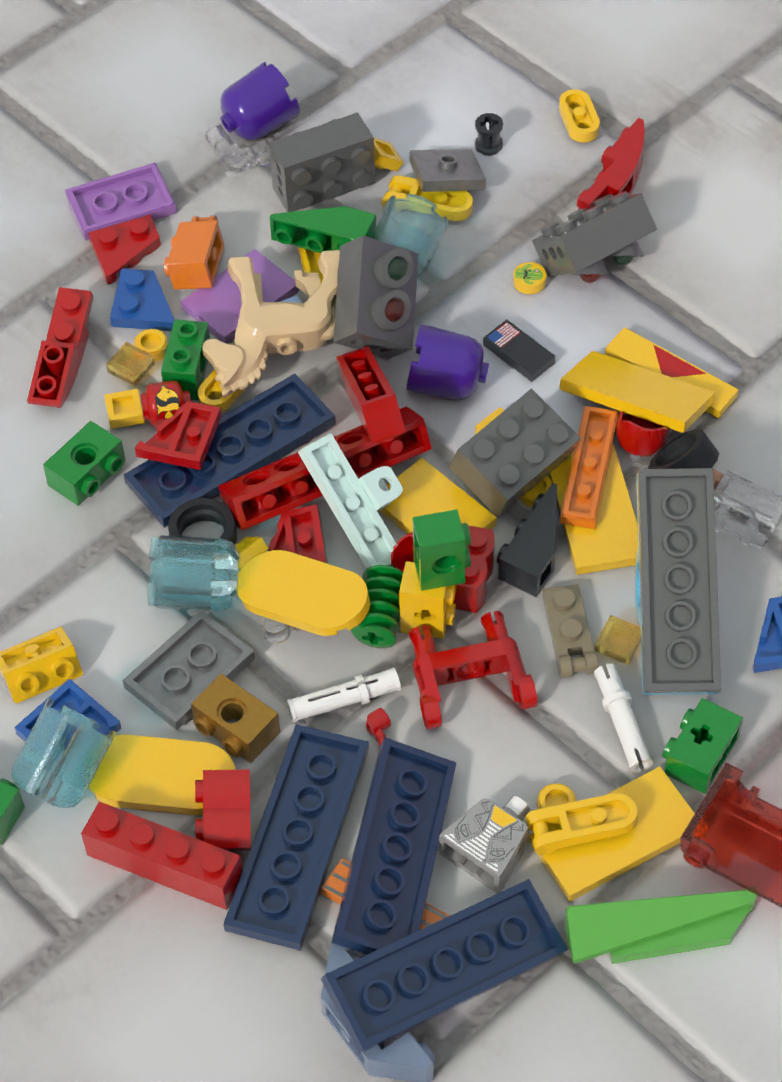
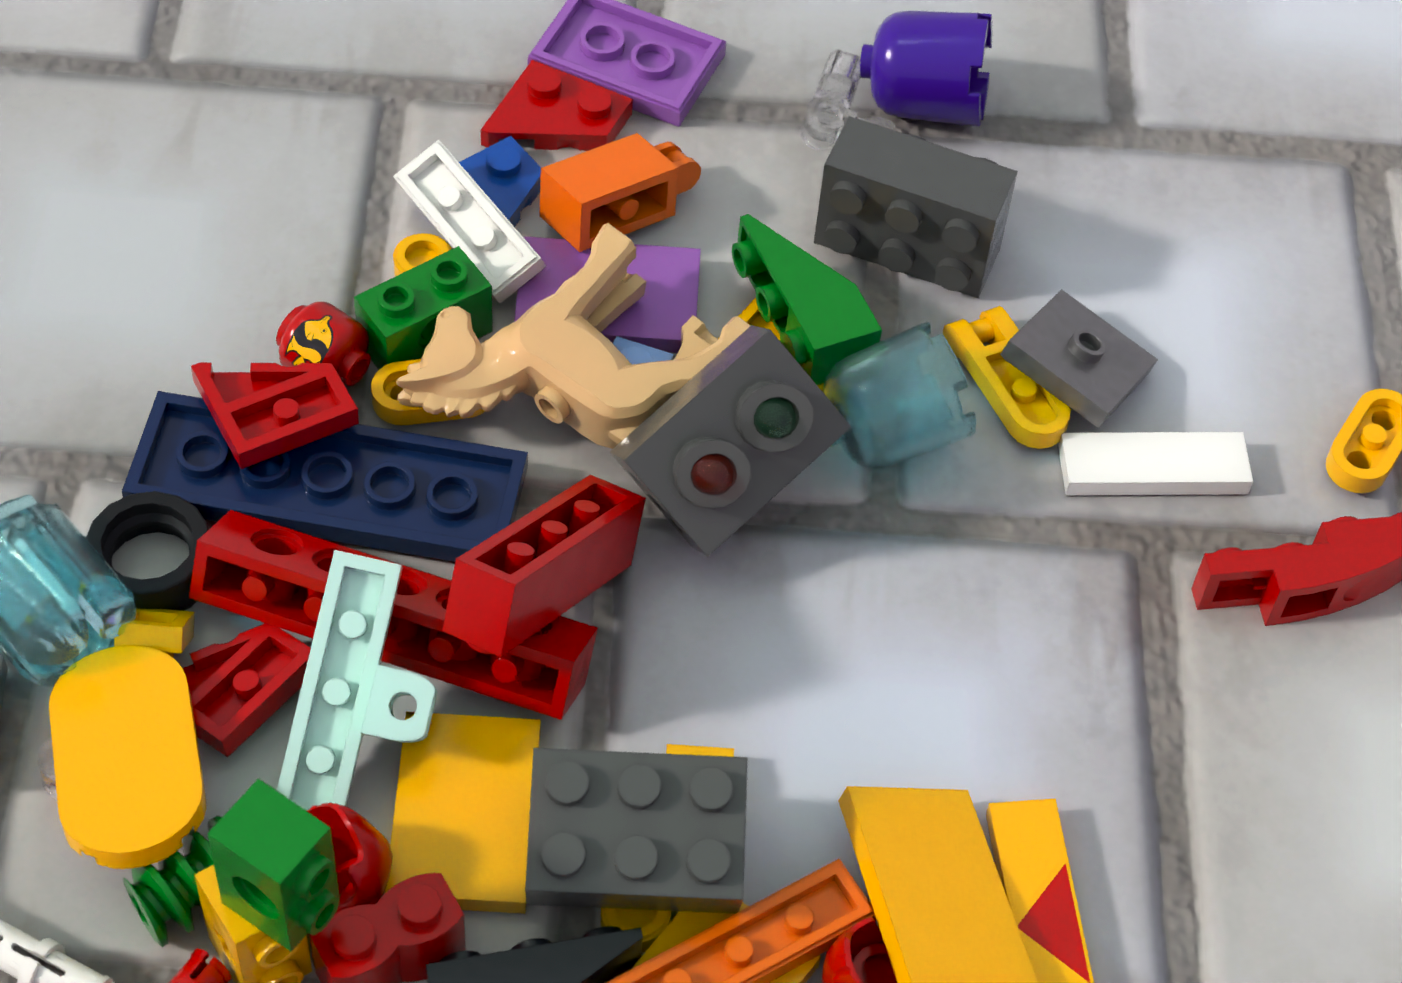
camera: 40 degrees right, 0 degrees up
(63, 349) = (294, 184): red slope -> none
(84, 463) = (138, 335): green brick -> none
(124, 408) = (269, 304): yellow plate -> none
(130, 364) = (360, 260): clear yellow plate -> none
(152, 309) = (469, 220): none -> white tile
(386, 156) = (1022, 264): yellow plate -> none
(447, 364) = (721, 615): dark purple cylinder -> none
(493, 133) = (1197, 354): black bush -> none
(514, 187) = (1155, 463): none -> white tile
(519, 350) = (869, 695): black tile -> none
(529, 278) = (1014, 606): tile -> none
(593, 234) = (1160, 624): dark grey piece -> none

